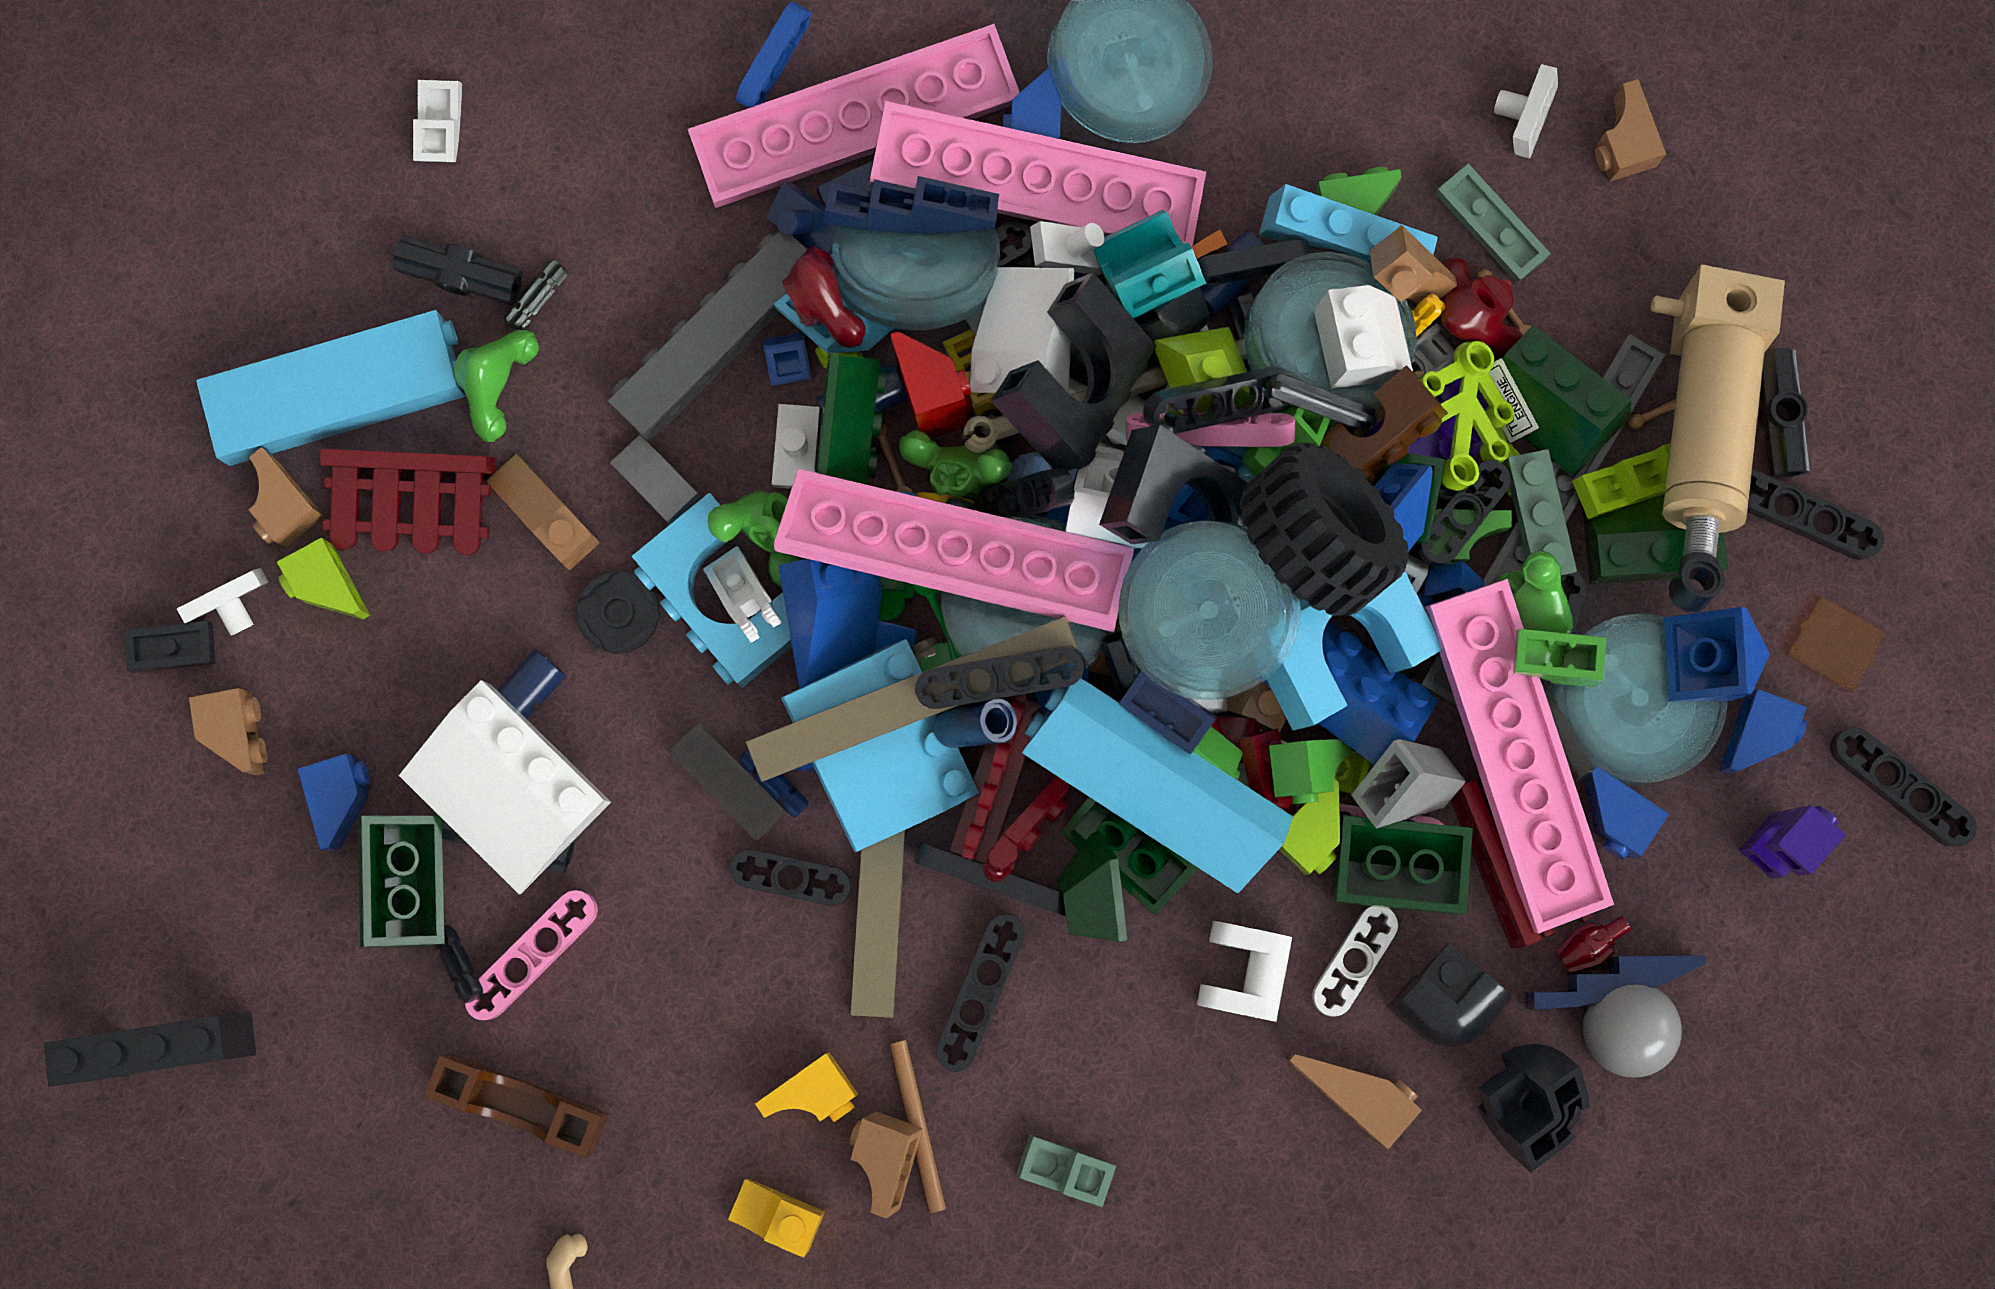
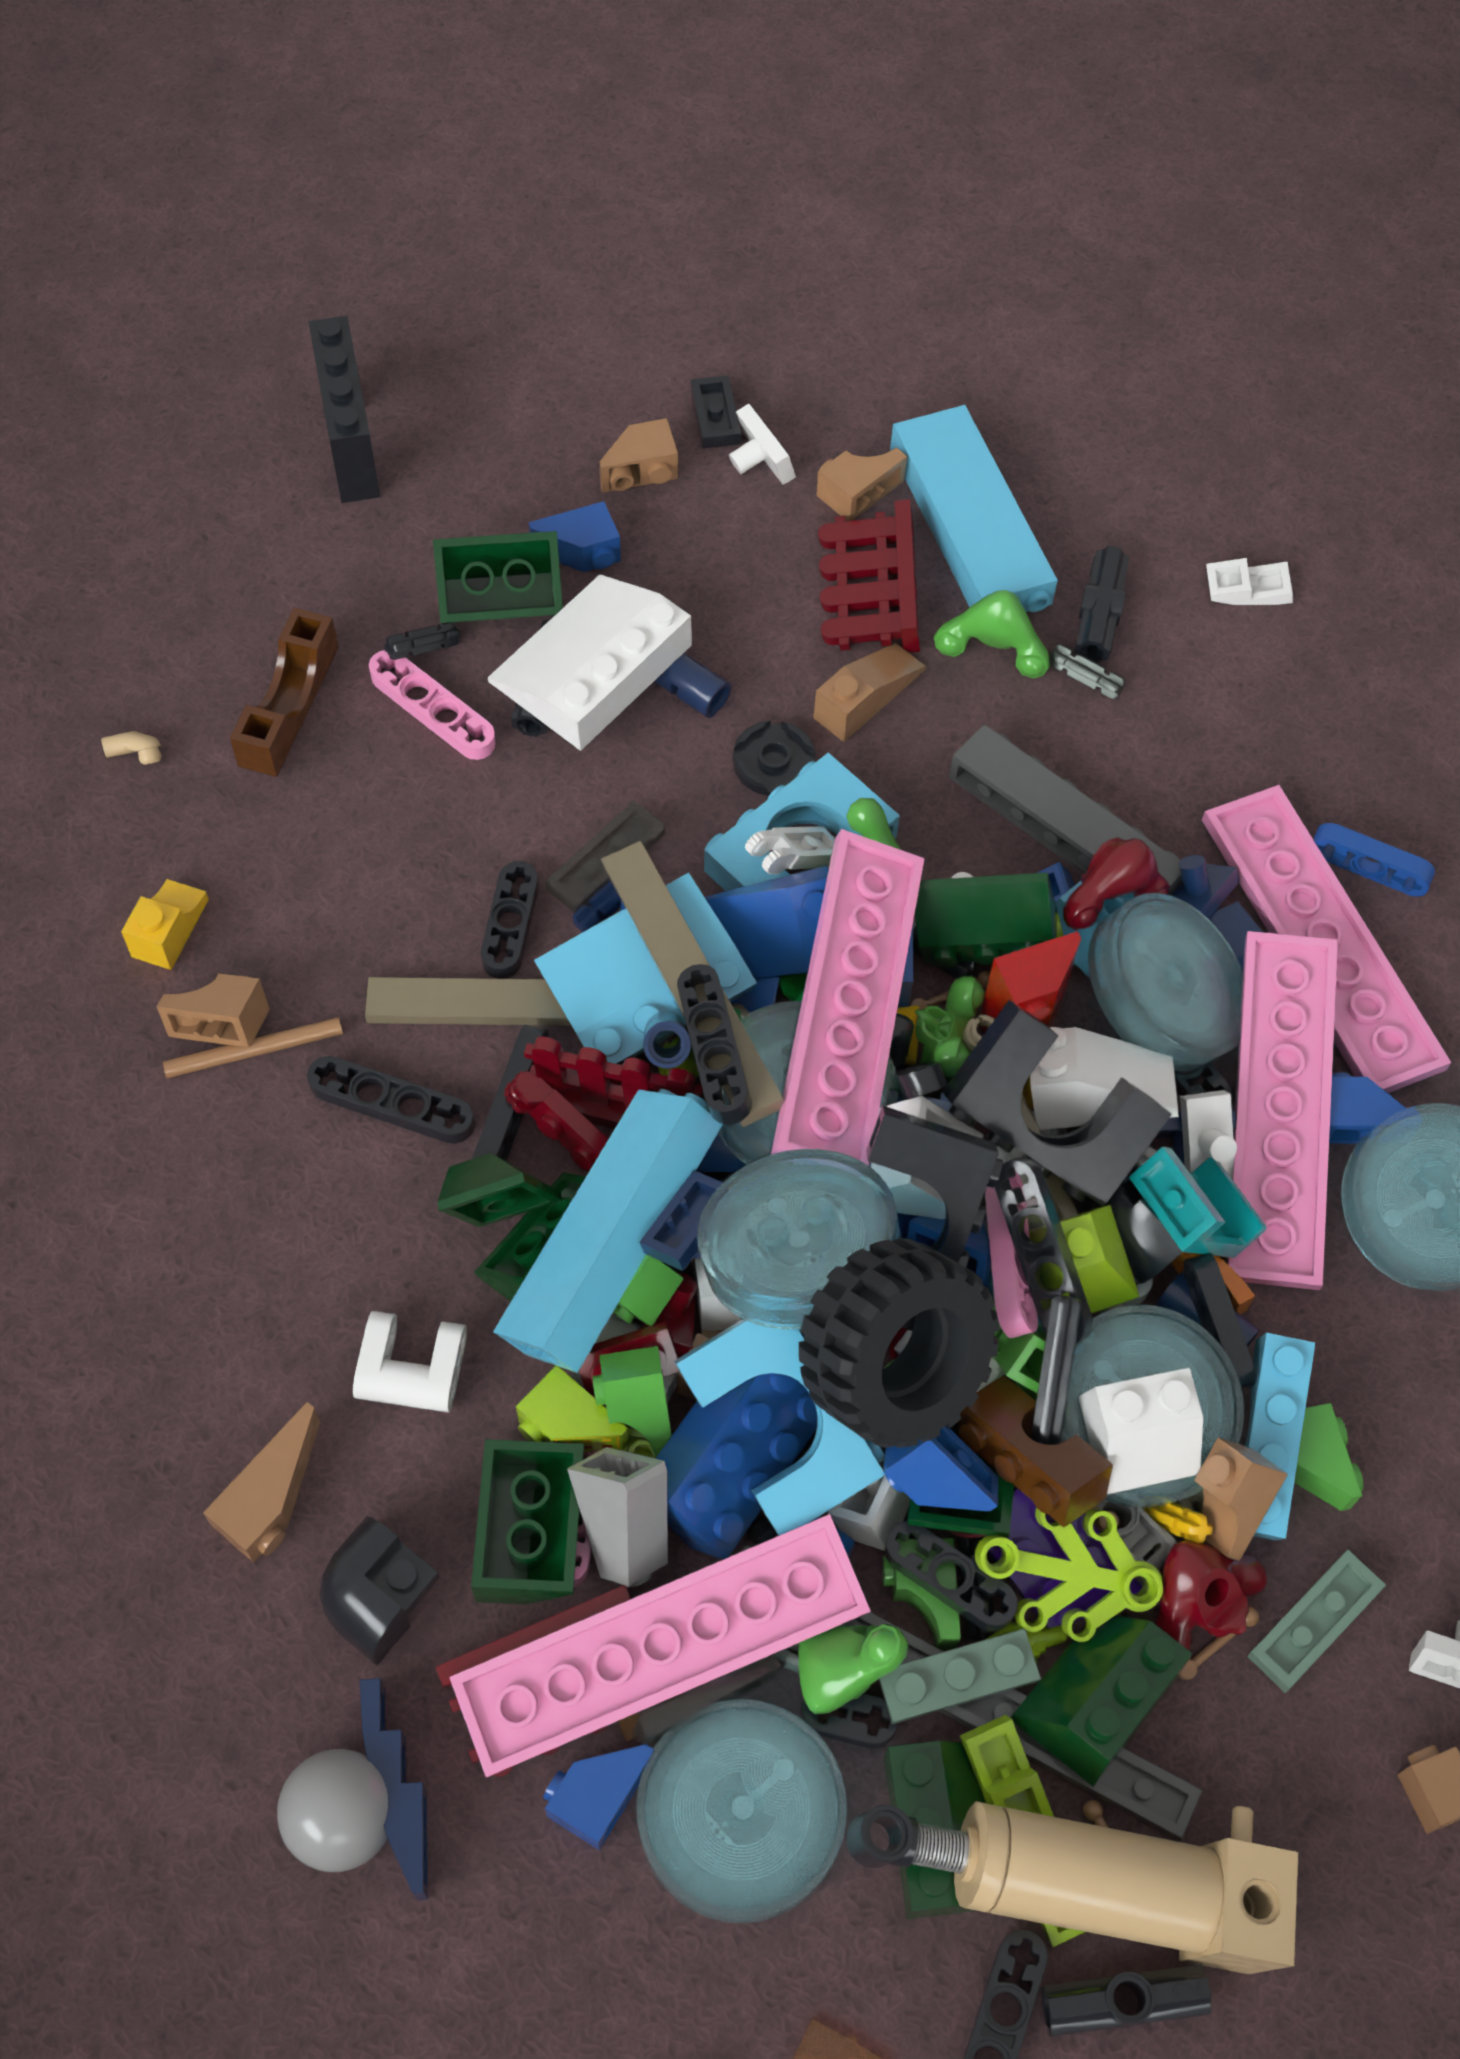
camera: 80 degrees right, 20 degrees down
(321, 579) = (786, 517): lime slope -> none
(655, 479) = (911, 776): flat silver slope -> none
(816, 1089) = (292, 949): yellow arch -> none
(927, 208) = (1225, 979): dark blue slope -> none
(1065, 1170) = (201, 1190): sand green slope -> none
(1329, 982) = (399, 1456): white beam -> none
(1451, 580) = (871, 1571): blue slope -> none
(1523, 419) = (1070, 1652): white sticker -> none
(1534, 1103) = (248, 1682): black brick -> none
(1560, 657) = (780, 1680): bright green arch -> none
(1591, 945) = (439, 1762): dark red piece -> none
(1713, 655) = (796, 1884): blue slope -> none
(1763, 730) = (709, 1977): blue slope -> none
(1793, 841) = (564, 1993): dark purple arch -> none

